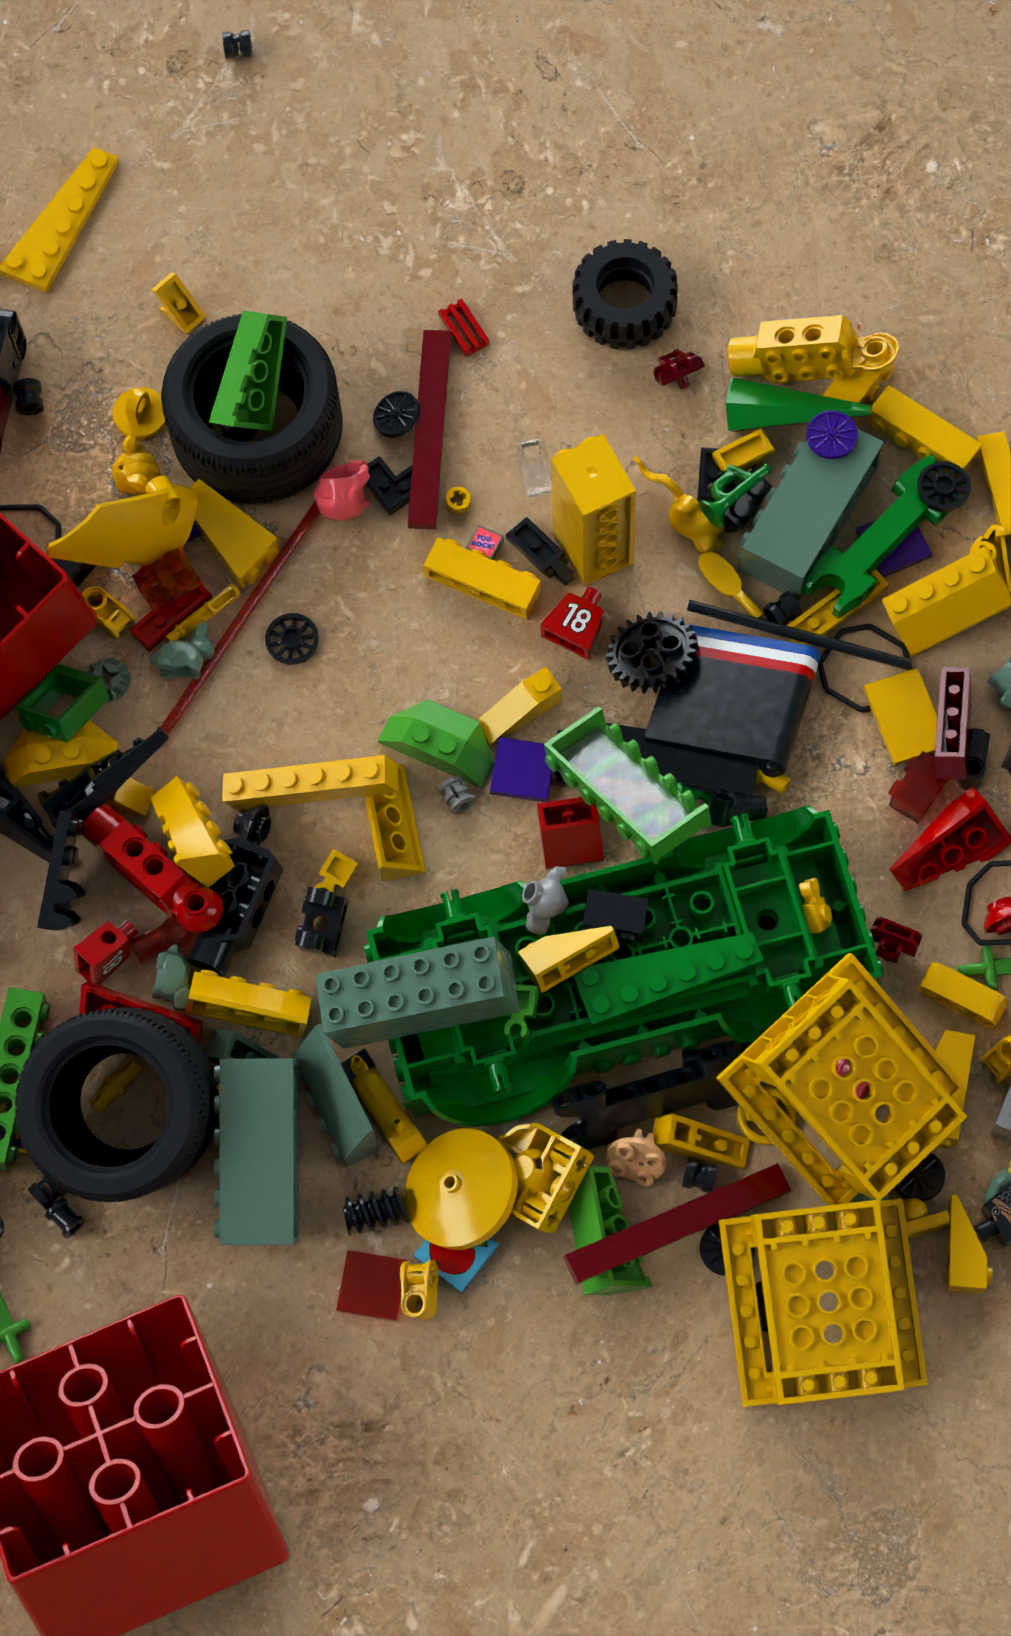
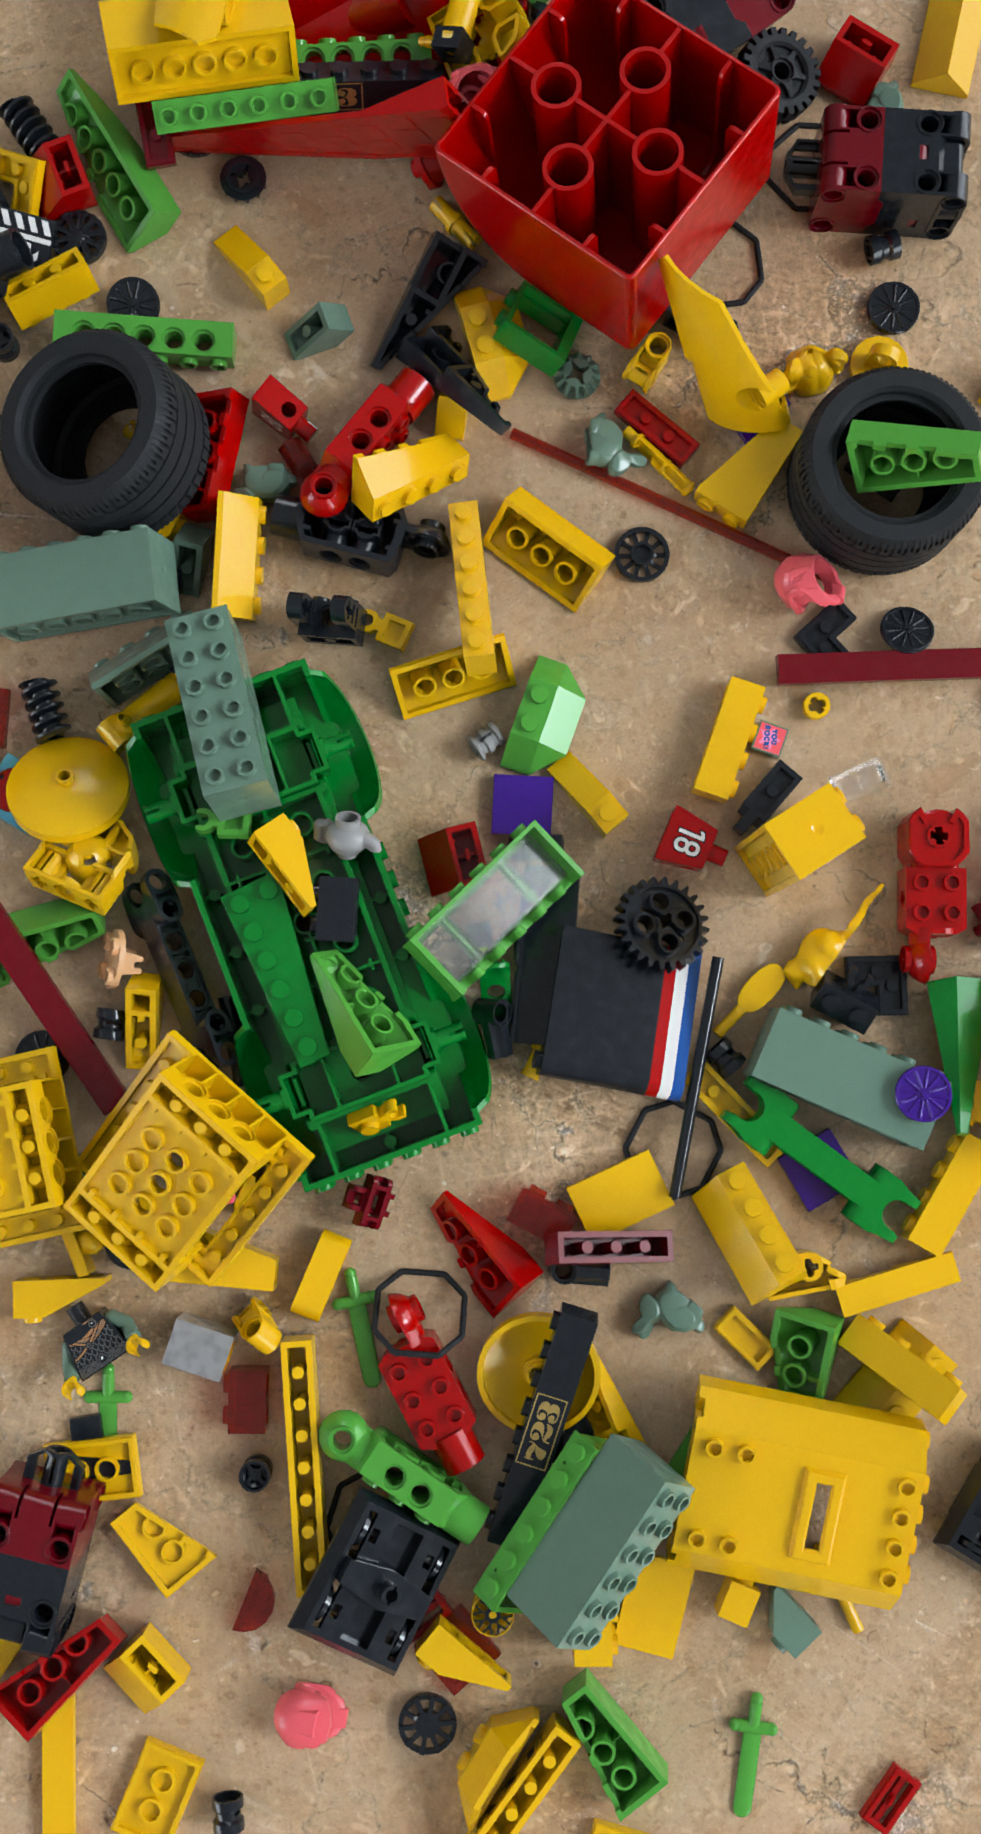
camera: 75 degrees right, 15 degrees up
(24, 910) = (319, 330): none -> sand green slope
(58, 889) = (350, 351): black hinge -> none
(86, 395) = (893, 308): none -> black wheel
(170, 584) = (687, 416): clear red brick -> none
(277, 718) = (547, 548): none -> yellow slope
(640, 417) = (930, 885): none -> red brick
(716, 510) = (836, 985): green piece -> none
(731, 897) = (363, 1025): none -> bright green wedge
(744, 451) = (902, 1001): yellow tile -> none
(943, 486) = (881, 1219): black wheel -> none

